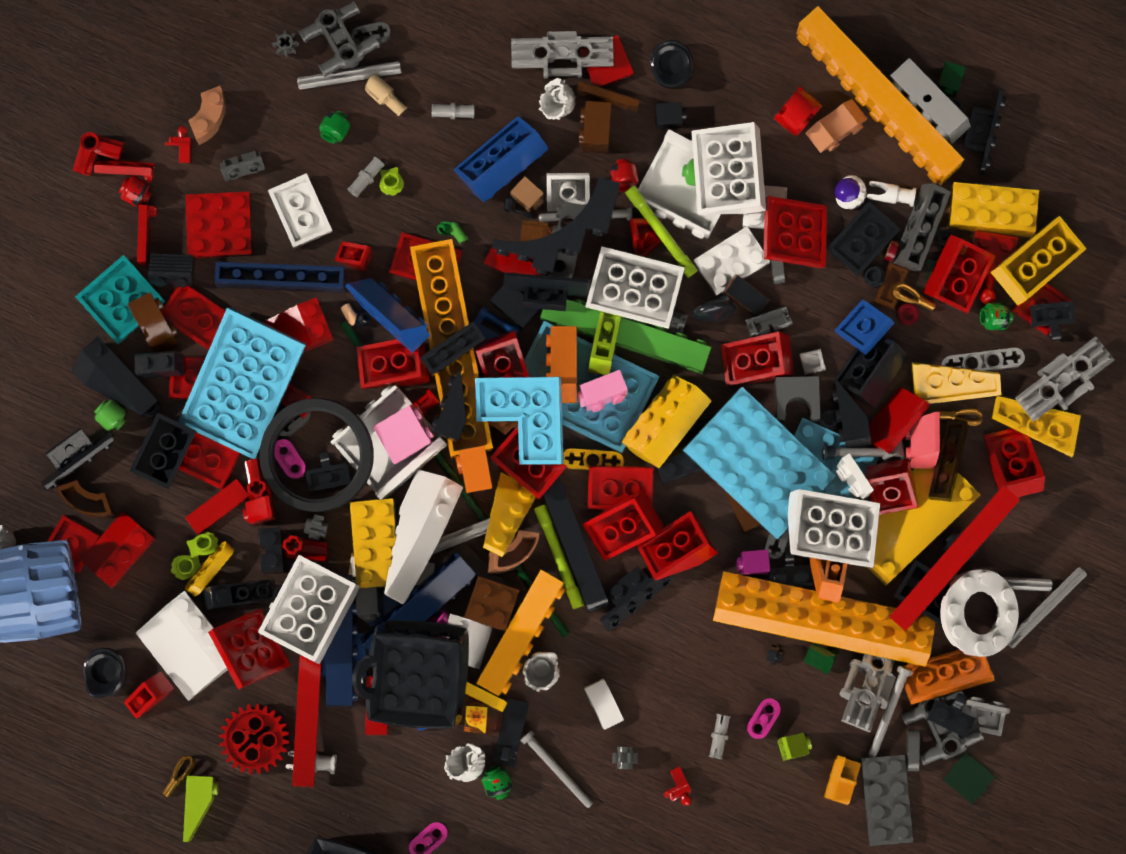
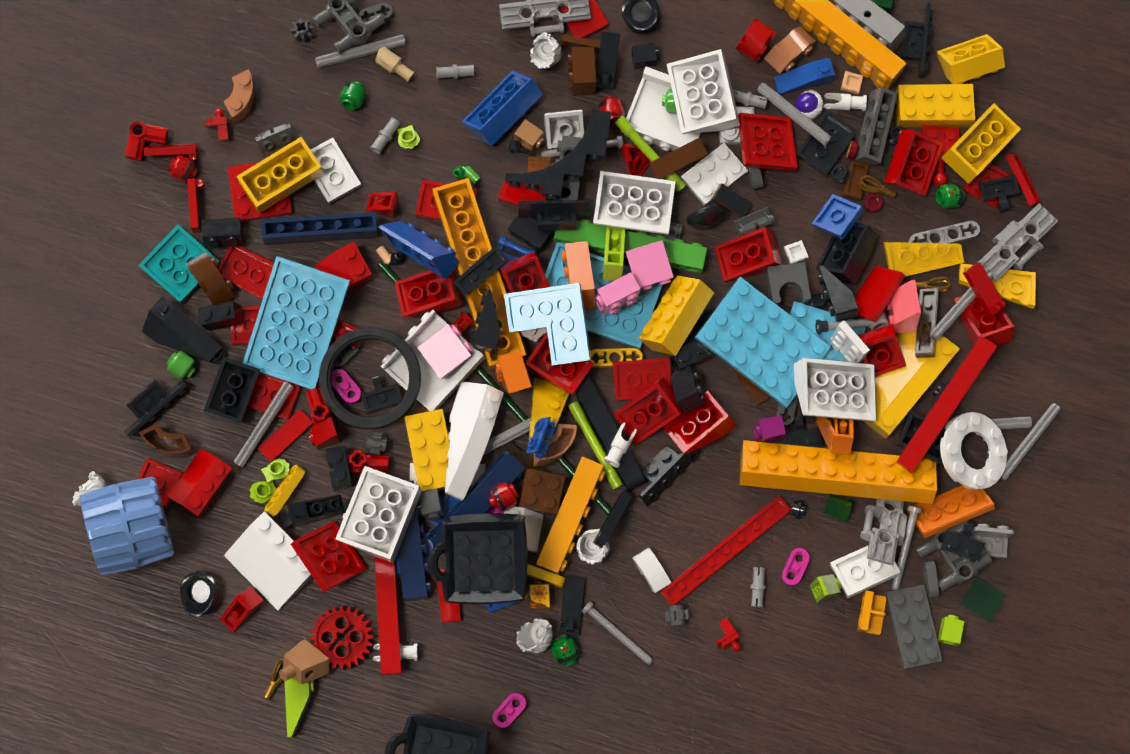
camera: 15 degrees left, 5 degrees down
(194, 492) = (263, 424): none -> light grey axle
(209, 764) = (304, 663): none -> medium nougat torso
(242, 212) = (280, 175): none -> yellow brick
(448, 605) = (503, 496): none -> red head
(499, 537) = (542, 430): none -> blue hinge
(566, 642) = (612, 518): none -> black beam
(583, 564) = (619, 447): none -> white piece
(626, 116) = (607, 59): none -> black hinge
(643, 361) = (650, 265): none -> bright pink brick
(668, 506) = (688, 388): none -> black brick
(689, 691) = (725, 551): none -> red tile
(691, 241) = (678, 158): none -> reddish brown tile
(782, 178) = (750, 99): none -> light grey pin
(830, 201) = (794, 113): none -> light grey axle
(832, 736) = (860, 574): none -> white plate
(849, 159) = (805, 77): none -> blue slope
(902, 171) = (851, 82): none -> light nougat tile
(927, 809) = (951, 630): none -> lime brick
(989, 445) = (955, 312): none -> light grey axle
(1017, 431) = (984, 289): none -> red hinge
(1043, 159) = (971, 59): none -> yellow slope
(1082, 306) = (1023, 179): none -> red tile

